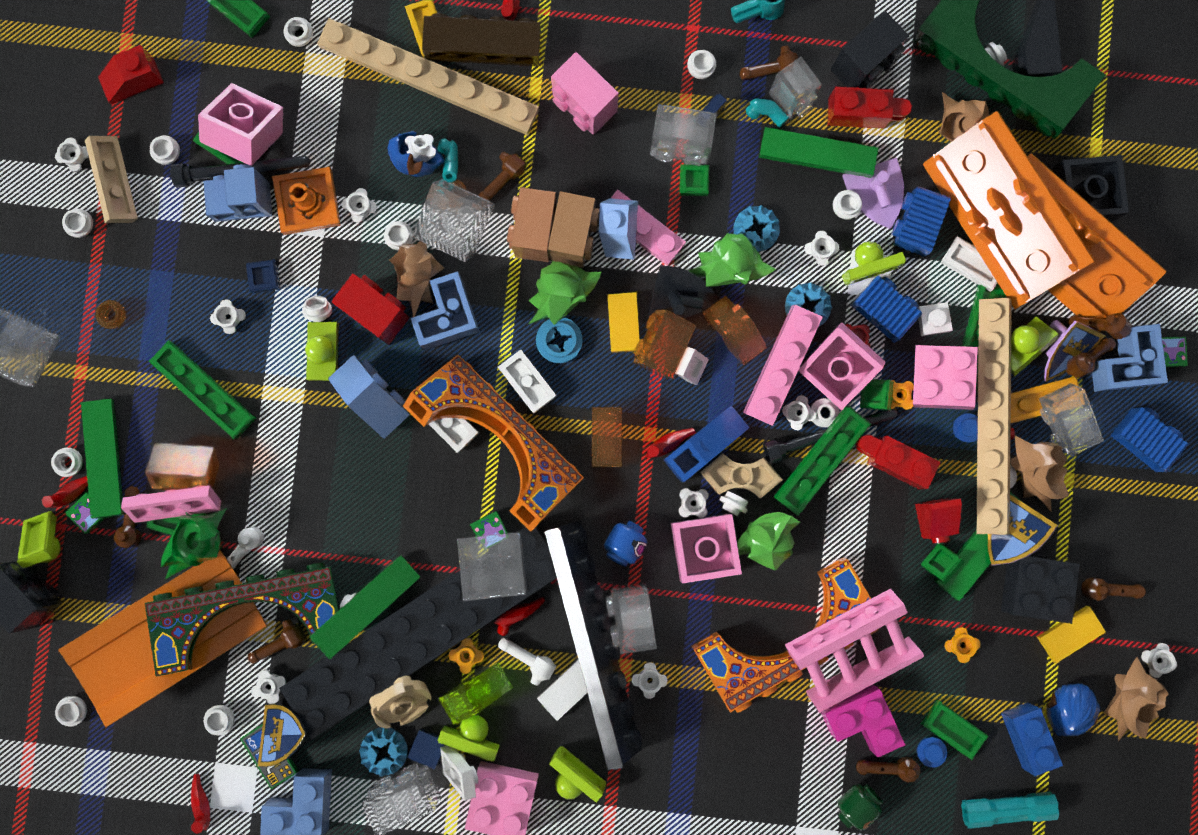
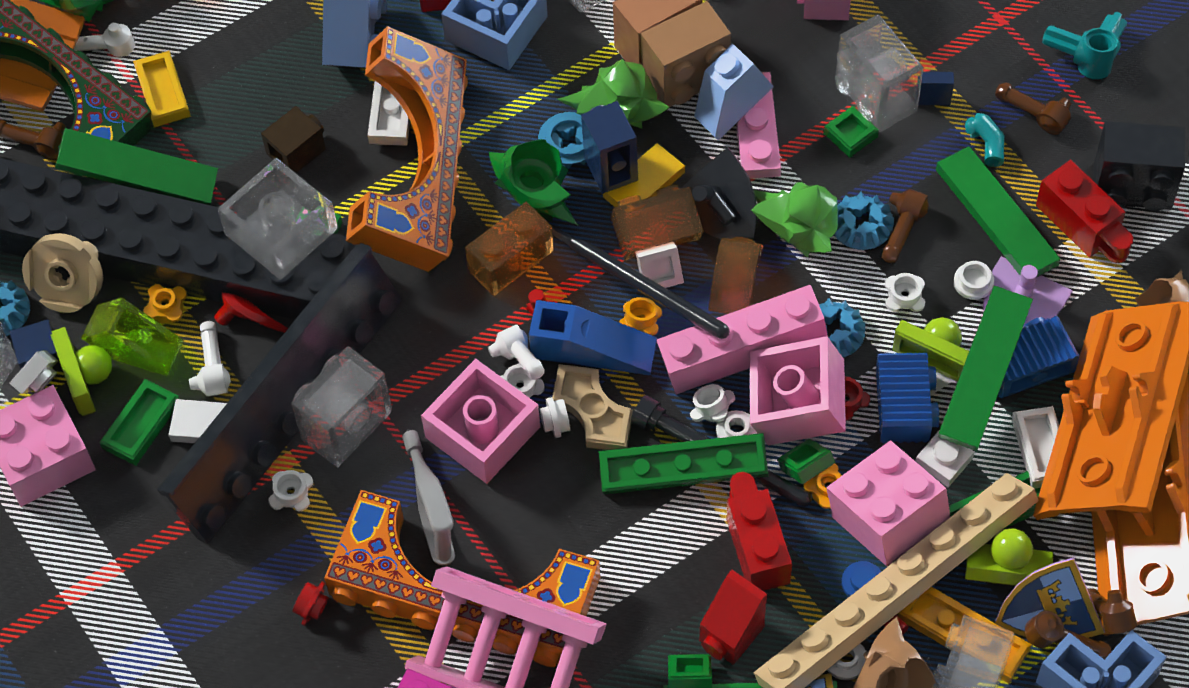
camera: 55 degrees right, 25 degrees down
(309, 540) = (162, 88): none -> yellow tile
(421, 495) = (294, 139): none -> dark brown brick
(527, 381) = (499, 132): white plate -> none
(531, 727) = (139, 422): none -> green tile
(575, 777) = (122, 496): lime tile -> none
(577, 387) = (535, 176): none -> green hair
(600, 330) = (609, 146): none -> dark blue brick
(625, 543) = (415, 349): blue head -> none
(667, 486) = (514, 344): none -> white piece
(689, 392) = (645, 285): none -> black piece
(701, 64) = (970, 47): white plate -> none
(711, 394) = (642, 315): none -> light orange plate
(726, 613) = (431, 504): none -> light grey piece
(730, 726) = (310, 602): none -> red plate
(768, 539) = (546, 469): bright green hair -> none
(774, 194) = (911, 208): none -> reddish brown piece
(795, 88) = (1030, 130): clear brick -> none
(918, 255) = (985, 368): none -> green tile

